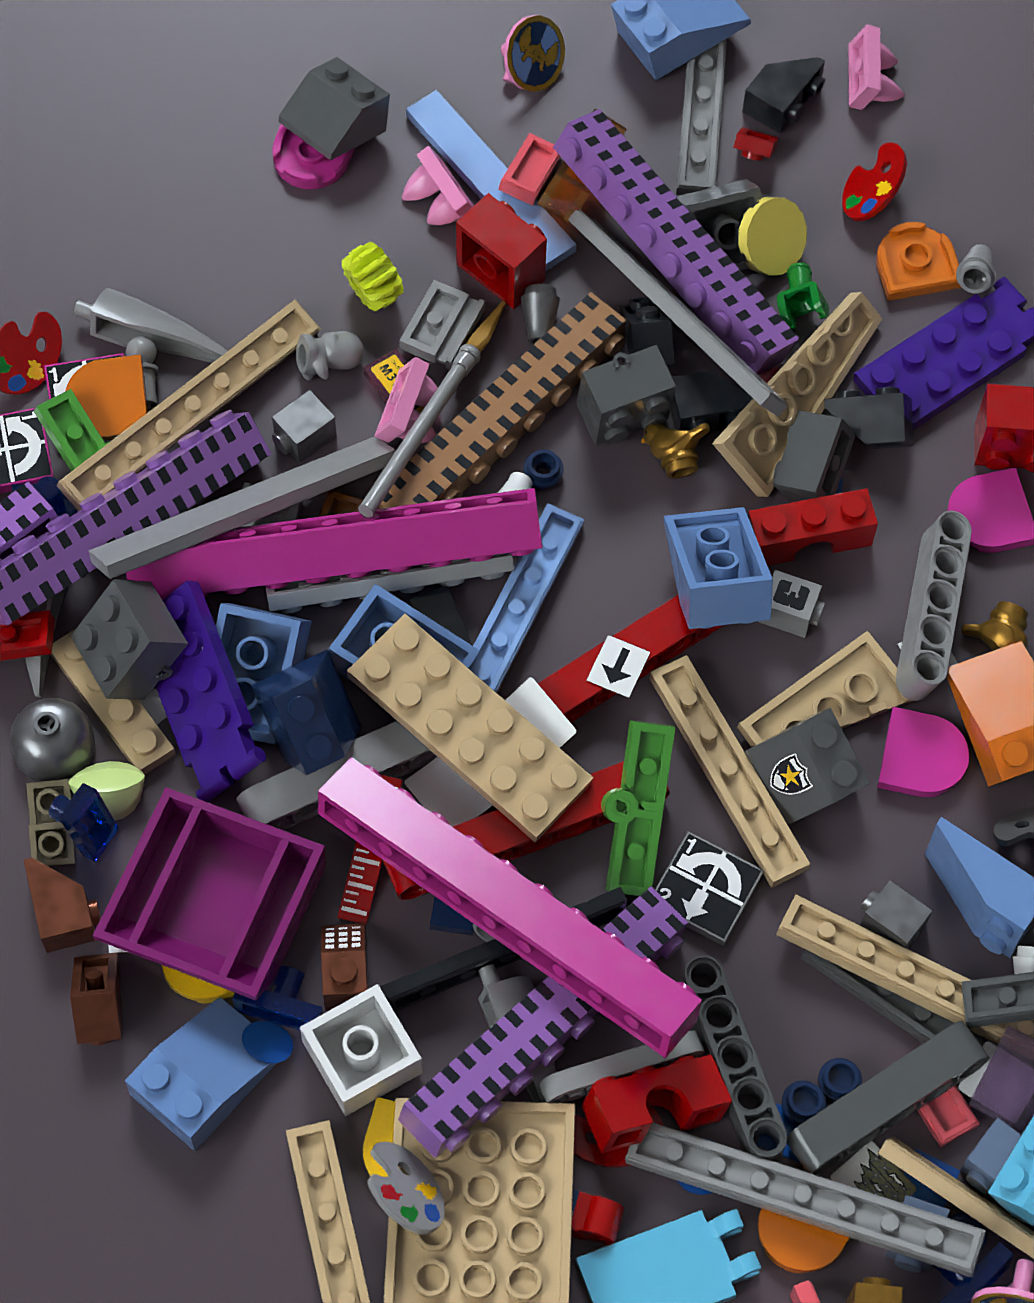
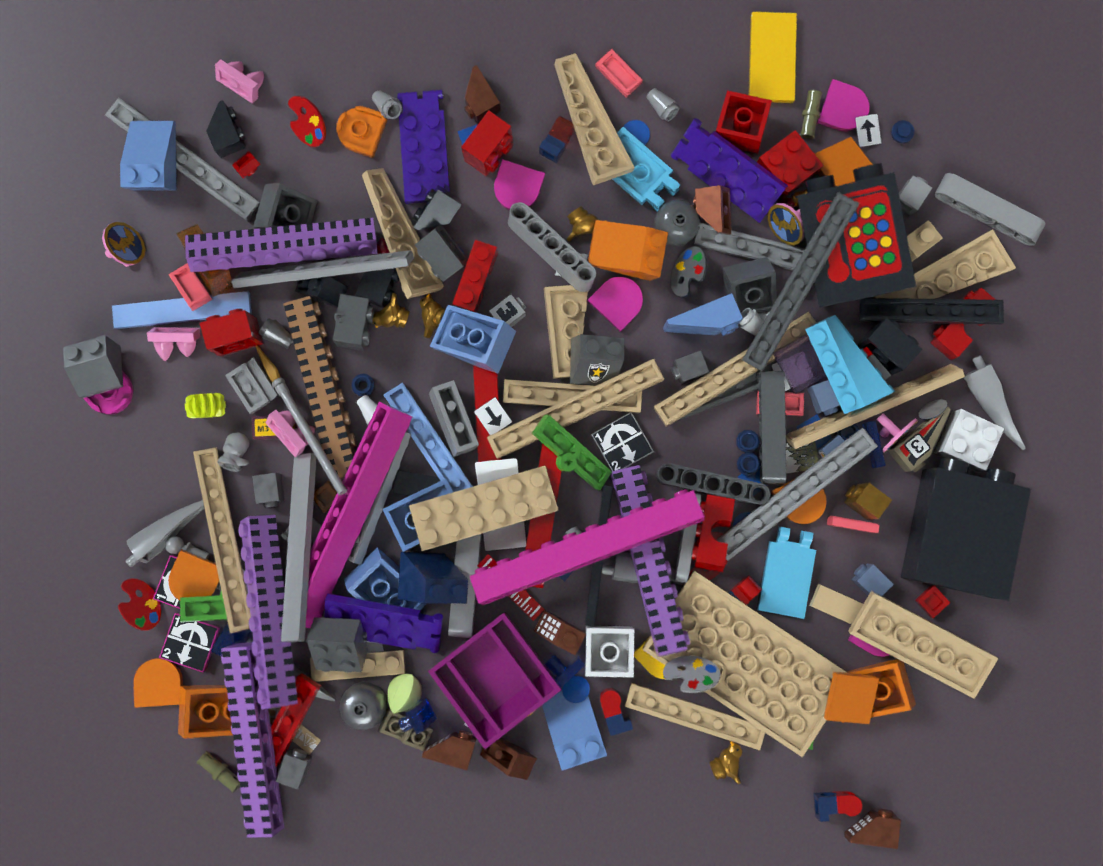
camera: 55 degrees left, 20 degrees up
(263, 1119) = (610, 704): none -> leg
(577, 614) = (453, 418): none -> light grey brick
(714, 496) = (431, 314): none -> pearl gold animal
(722, 784) = (578, 407): none -> tan tile
(772, 235) = (306, 192): light yellow tile -> none
(801, 296) = (348, 200): green piece -> none

